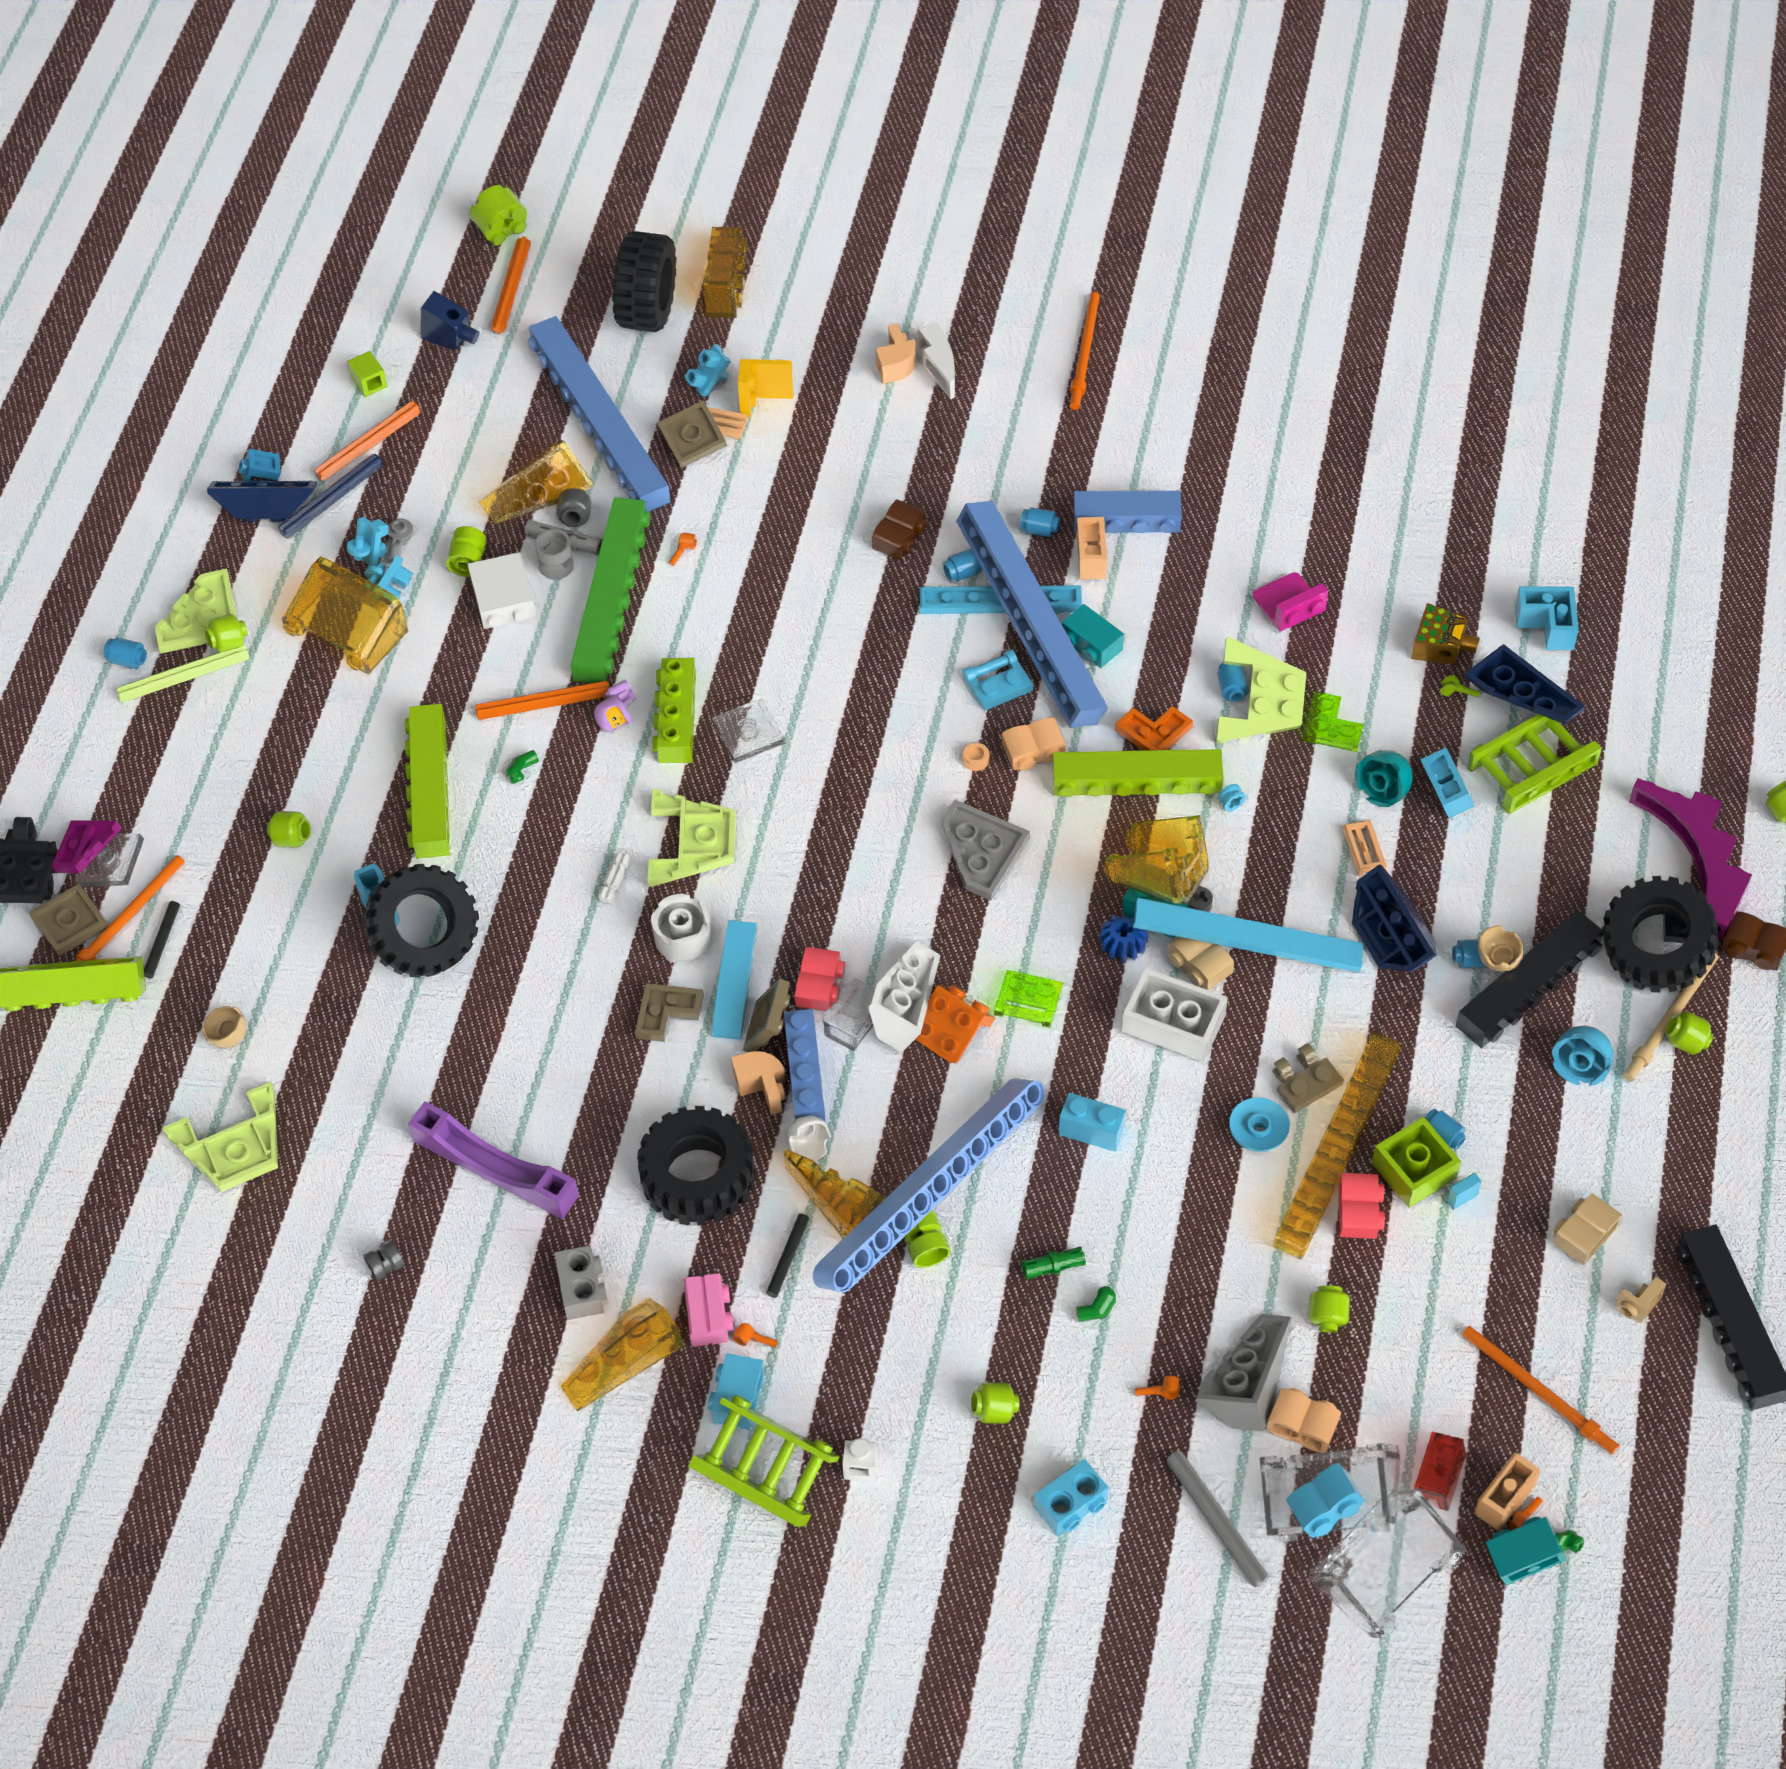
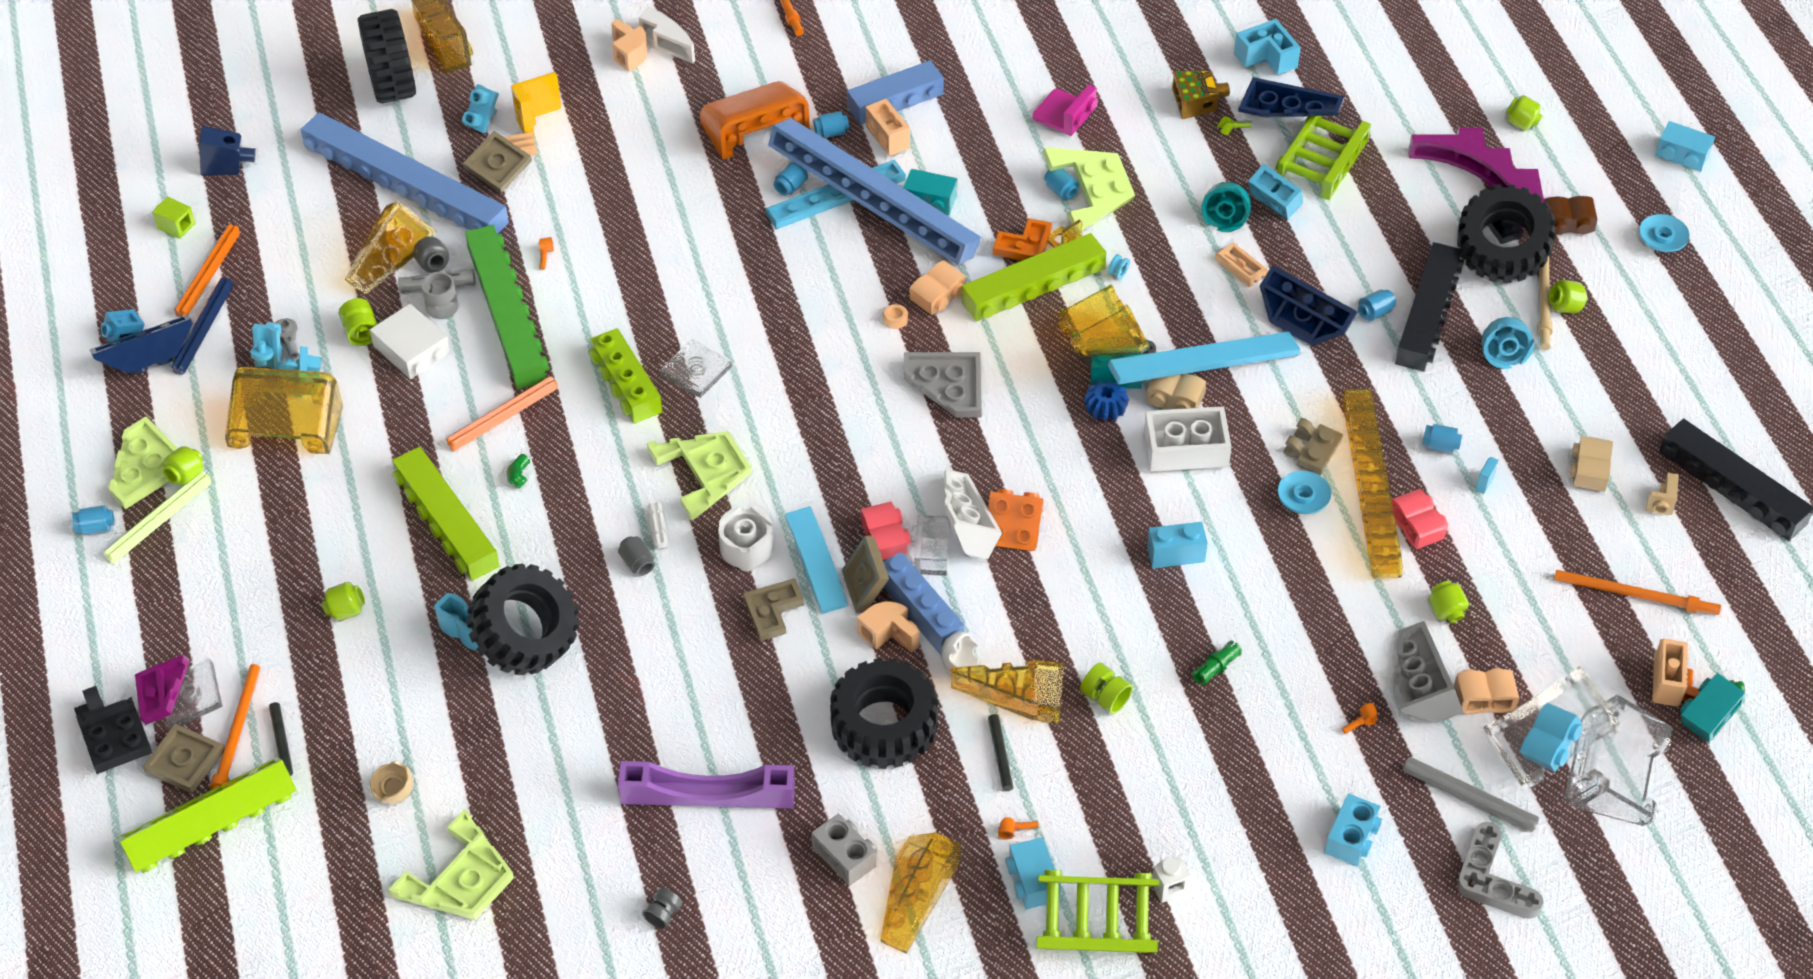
camera: 30 degrees left, 5 degrees down
(499, 214) = (214, 52): lime brick -> none
(510, 285) = (257, 106): orange axle -> none
(574, 900) = (636, 555): none -> dark grey brick
(612, 711) = (571, 394): lavender piece -> none
(706, 1309) = (966, 822): bright pink brick -> none
(898, 529) = (720, 171): reddish brown brick -> none
(928, 1185) = (1089, 644): light blue beam -> none
(969, 478) = (751, 111): none -> orange windscreen
(994, 1402) = (1245, 786): lime head -> none
(999, 687) = (880, 258): medium azure plate -> none
(1031, 992) = (1061, 471): clear neon green plate -> none
(1100, 1307) = (1275, 679): green arm -> none
(1173, 1605) = (1481, 876): none -> light grey beam
(1199, 739) = (1068, 234): none -> clear yellow bracket
(1326, 729) = (1153, 191): clear neon green plate -> none
(1416, 1162) = (1440, 468): lime brick -> none
(1441, 1468) = (1609, 674): clear red hinge -> none
(1500, 949) = (1401, 290): tan hair -> none

